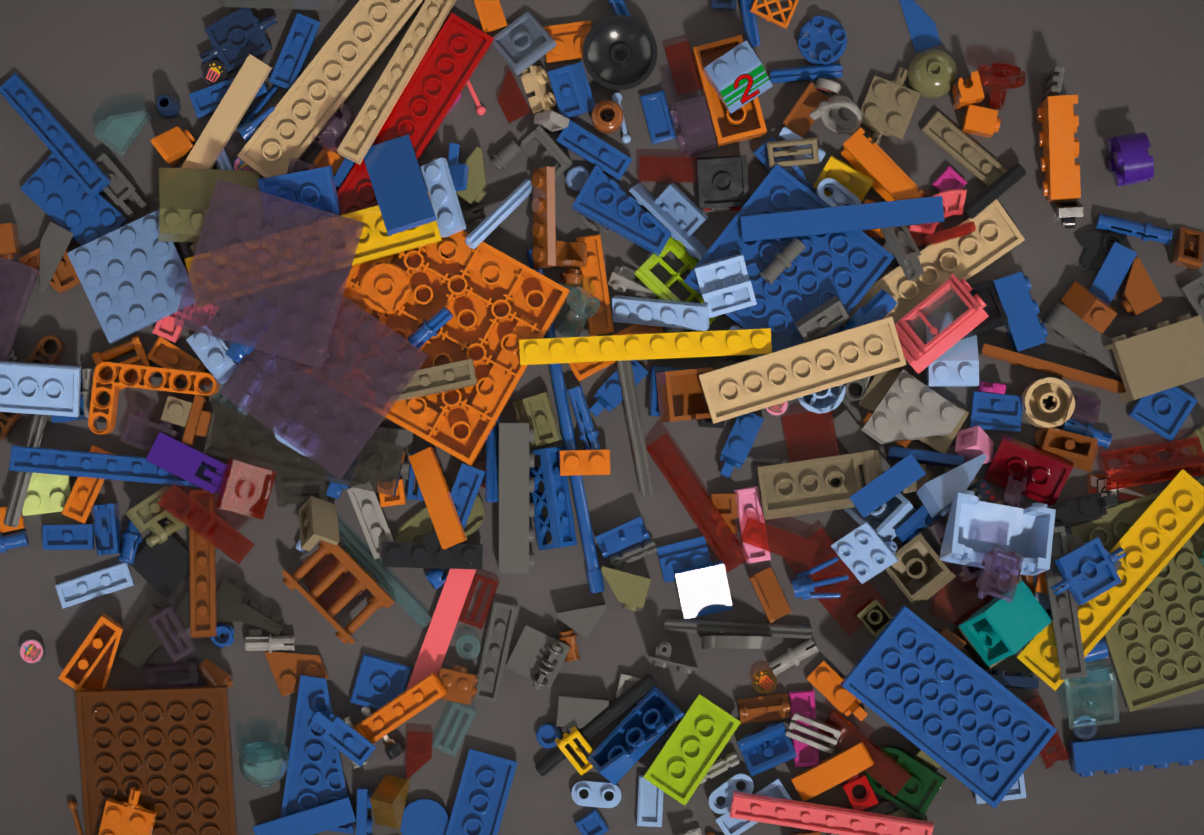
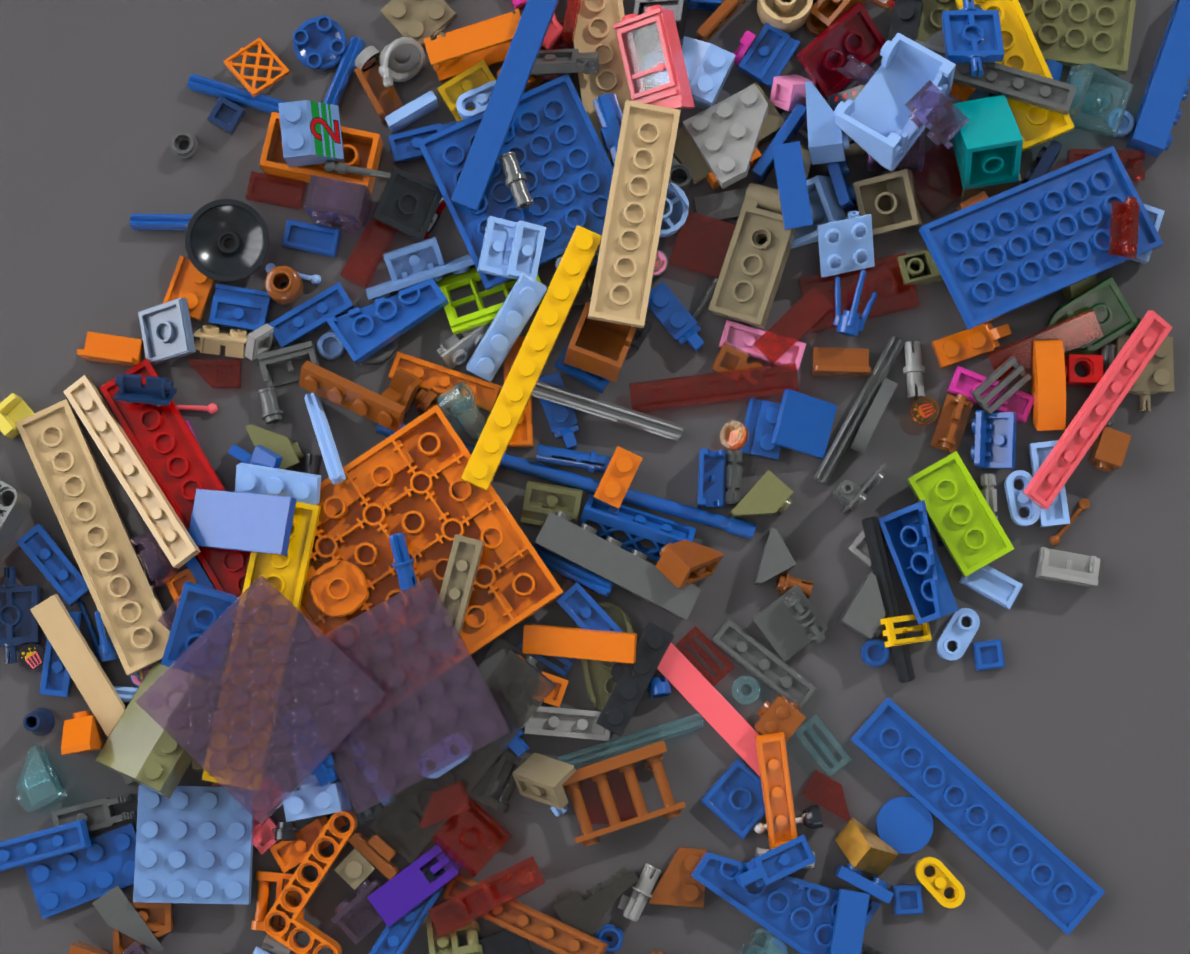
camera: 65 degrees left, 5 degrees down
(178, 343) = (286, 832): none -> black plate
(261, 456) = (445, 804): none -> clear red tile
(468, 60) = (156, 391): none -> dark blue hinge
(544, 551) = (687, 562): none -> dark orange slope
(666, 538) = (734, 435): none -> clear orange tile
(723, 117) = (343, 168): none -> dark grey piece
(815, 150) = (413, 93): dark tan tile -> none
(822, 320) = (594, 171): dark grey plate -> none
(989, 771) = (1124, 228): none -> clear red hinge

